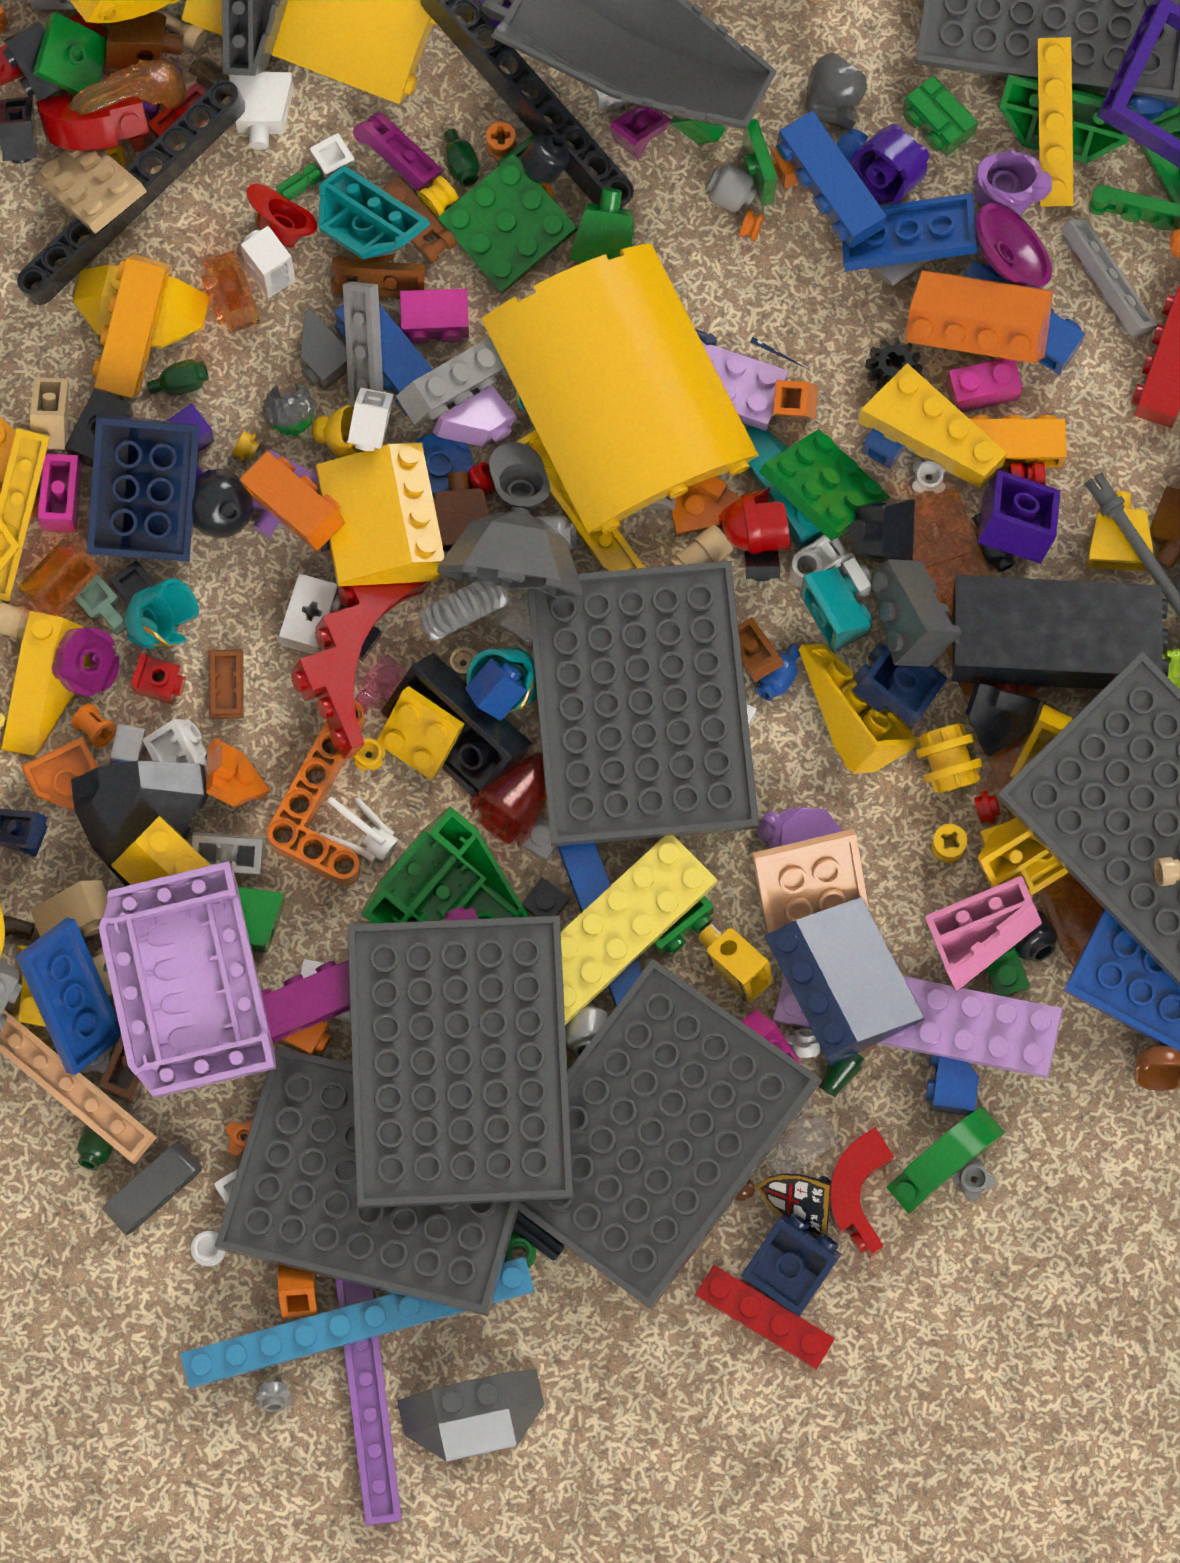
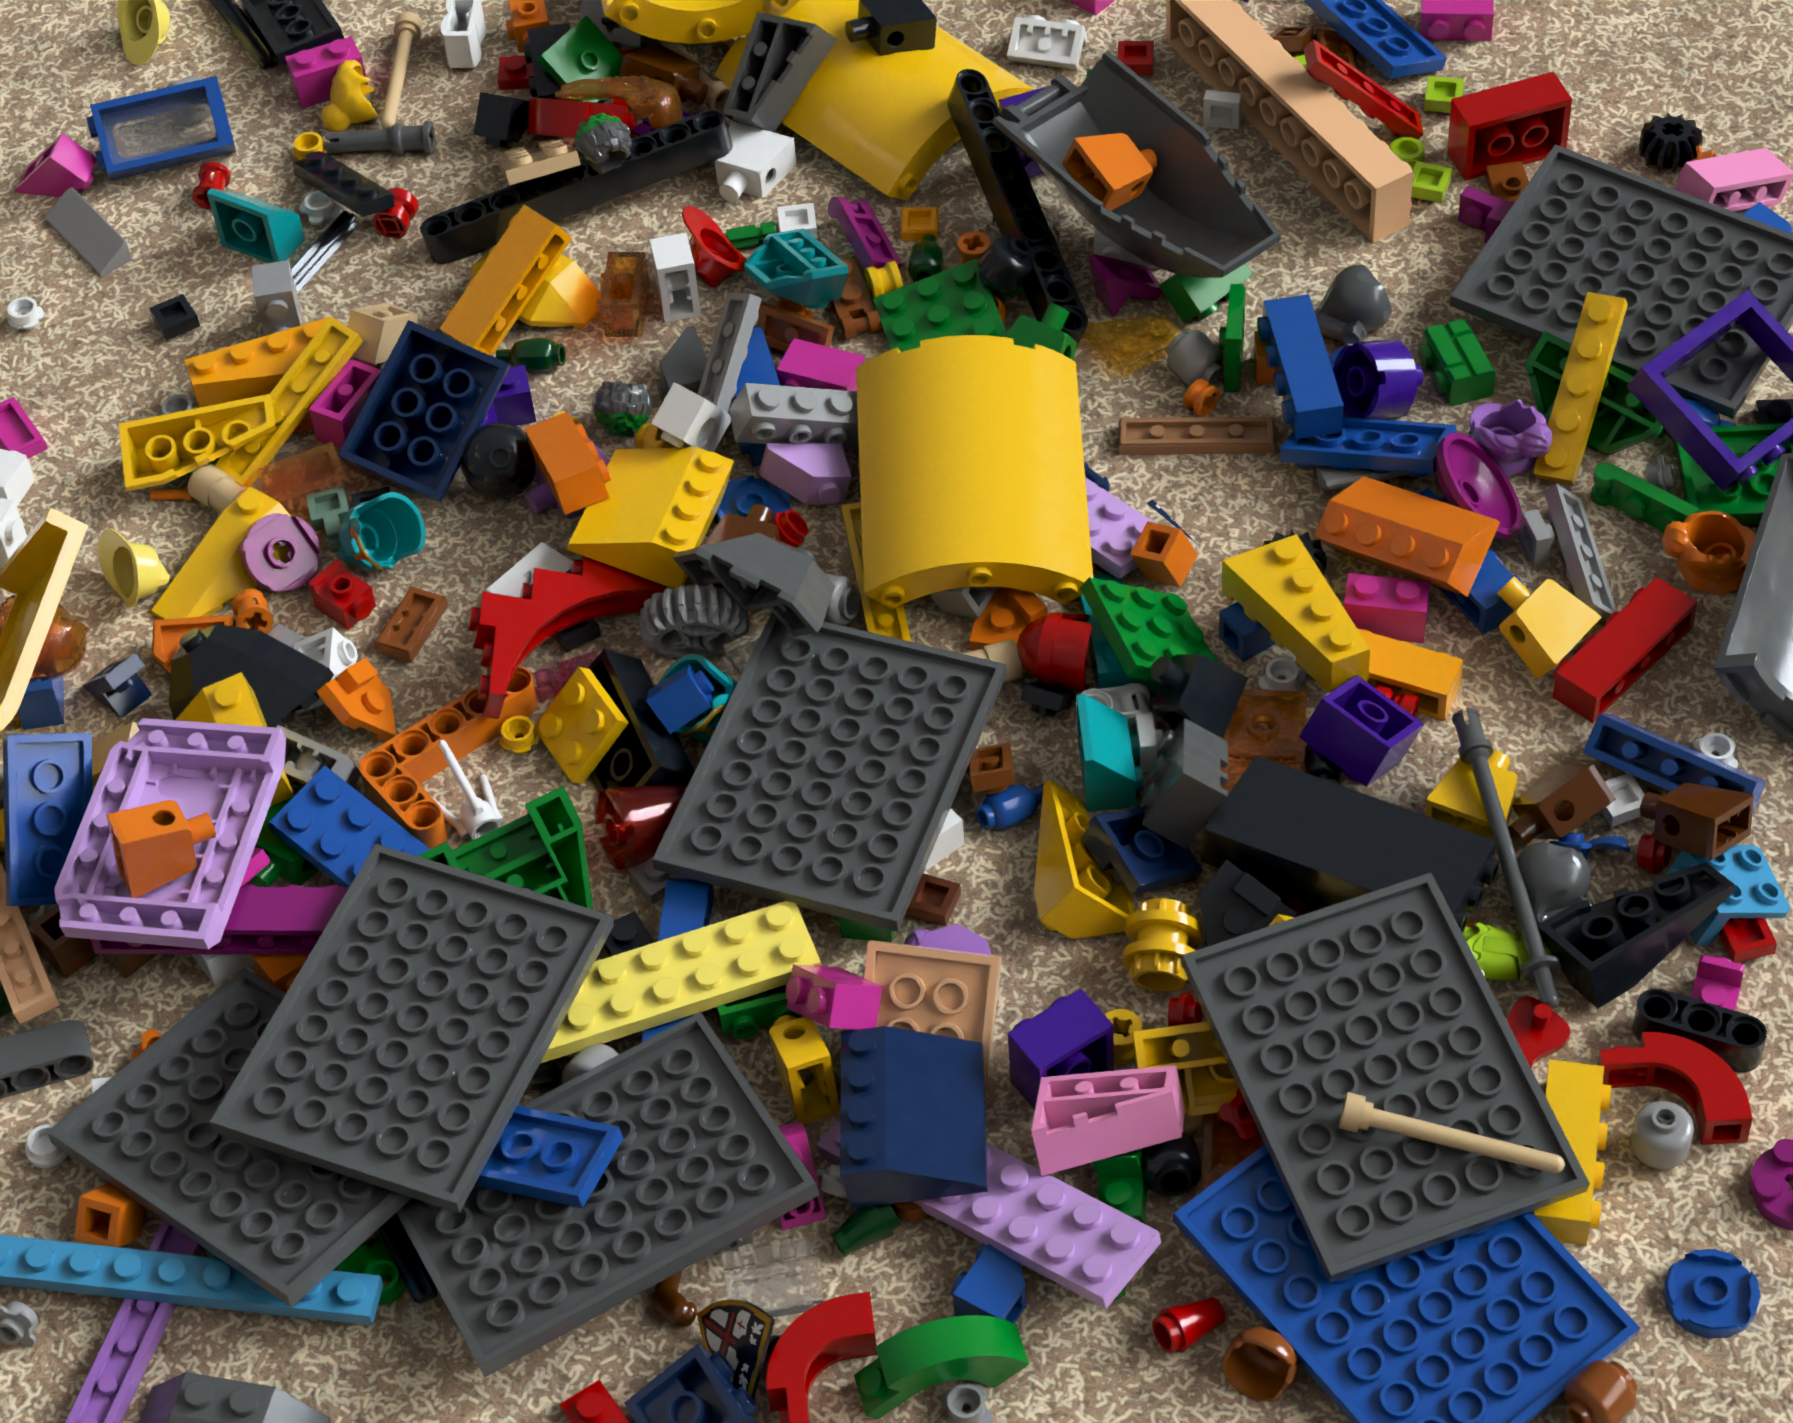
camera: 30 degrees right, 25 degrees down
(150, 156) = (603, 142): none -> dark grey piece
(187, 1013) = (156, 844): none -> orange torso
(301, 907) = (338, 827): none -> blue plate
(433, 117) = (919, 222): none -> light orange tile
(518, 476) = (825, 531): dark grey piece -> none
(599, 40) = (1110, 167): none -> orange torso
(613, 1125) = (550, 1156): none -> blue plate
(671, 181) = (1132, 342): none -> clear yellow wing
(743, 907) = (833, 997): none -> dark pink brick
(761, 261) = (1196, 435): none -> medium nougat tile
(765, 779) = (934, 900): none -> copper plate
(921, 881) = (1060, 1041): none -> dark purple brick
(1063, 884) = (1232, 1114): none -> red plate
(1069, 272) = (1536, 537): none -> light grey plate
(1095, 1055) = (1186, 1324): none -> red cone
(1110, 359) = (1544, 623): none -> yellow torso
(1139, 177) = (1661, 474): none -> light grey plate

